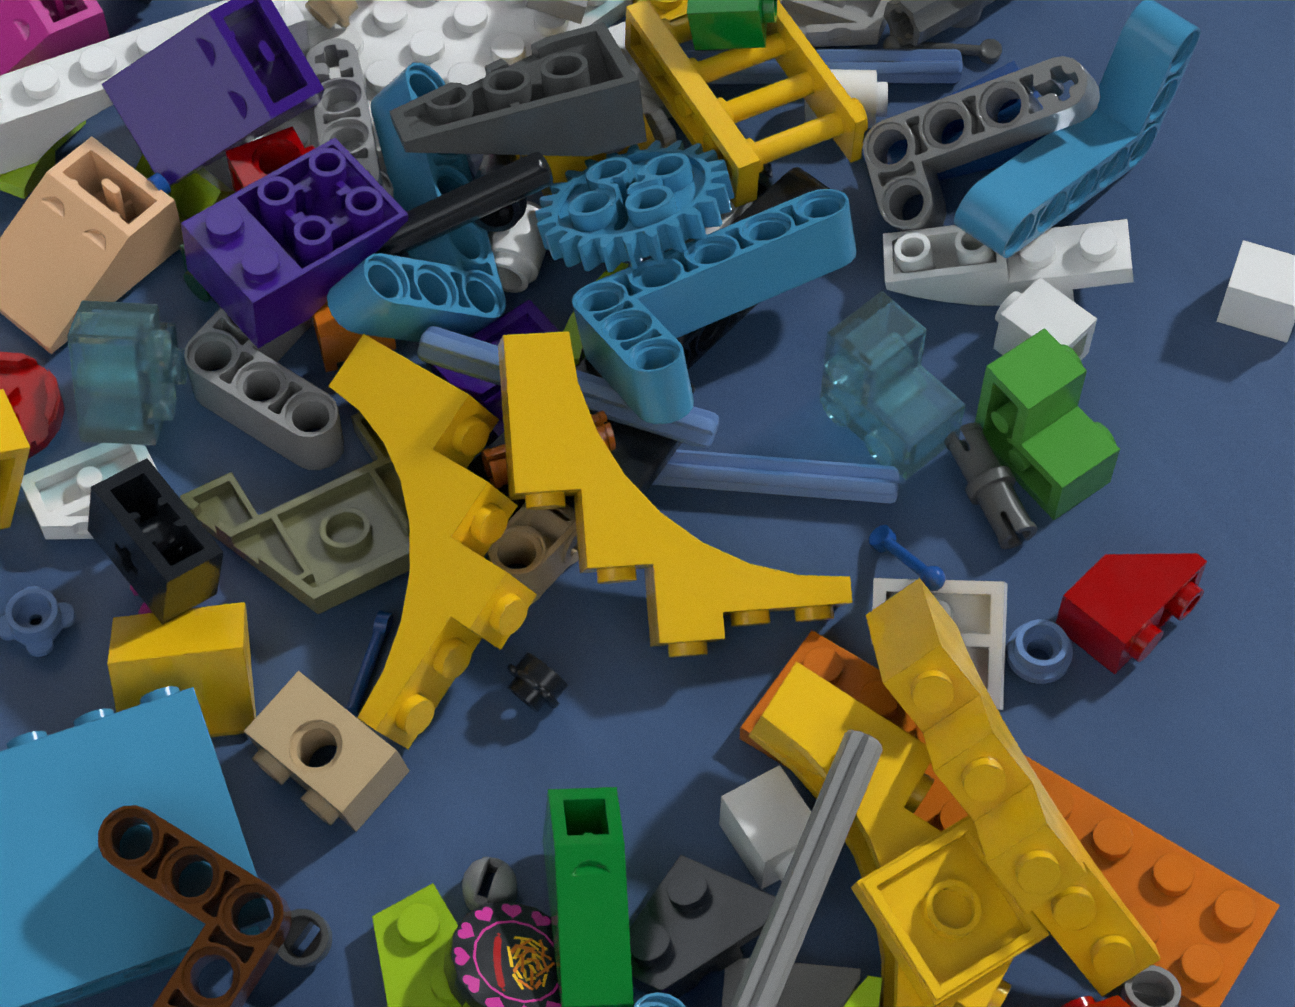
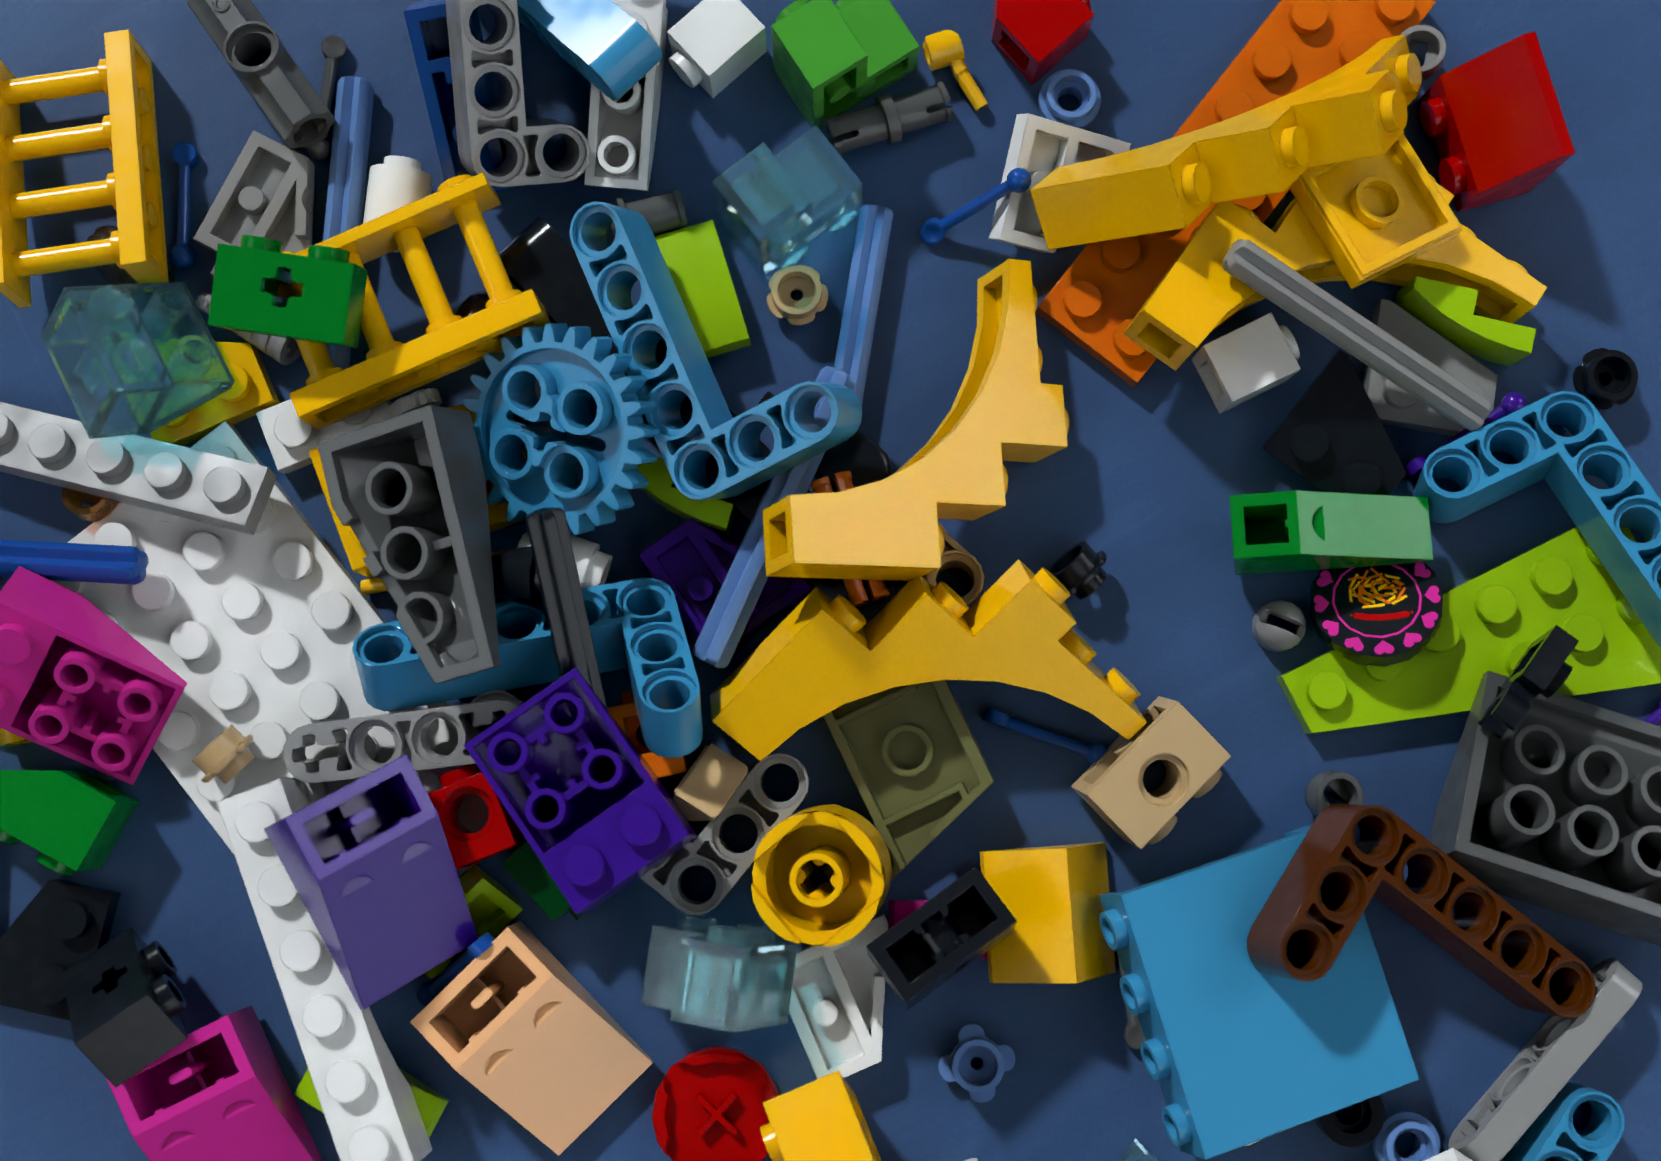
camera: 85 degrees left, 25 degrees up
(220, 446) = (813, 913): none -> yellow brick
(310, 355) = (709, 784): none -> tan slope
(783, 340) = (705, 286): none -> lime slope
(800, 406) = (791, 279): none -> tan plate
(856, 281) = (661, 211): none -> dark grey pin
(1073, 540) = (945, 50): none -> yellow hand

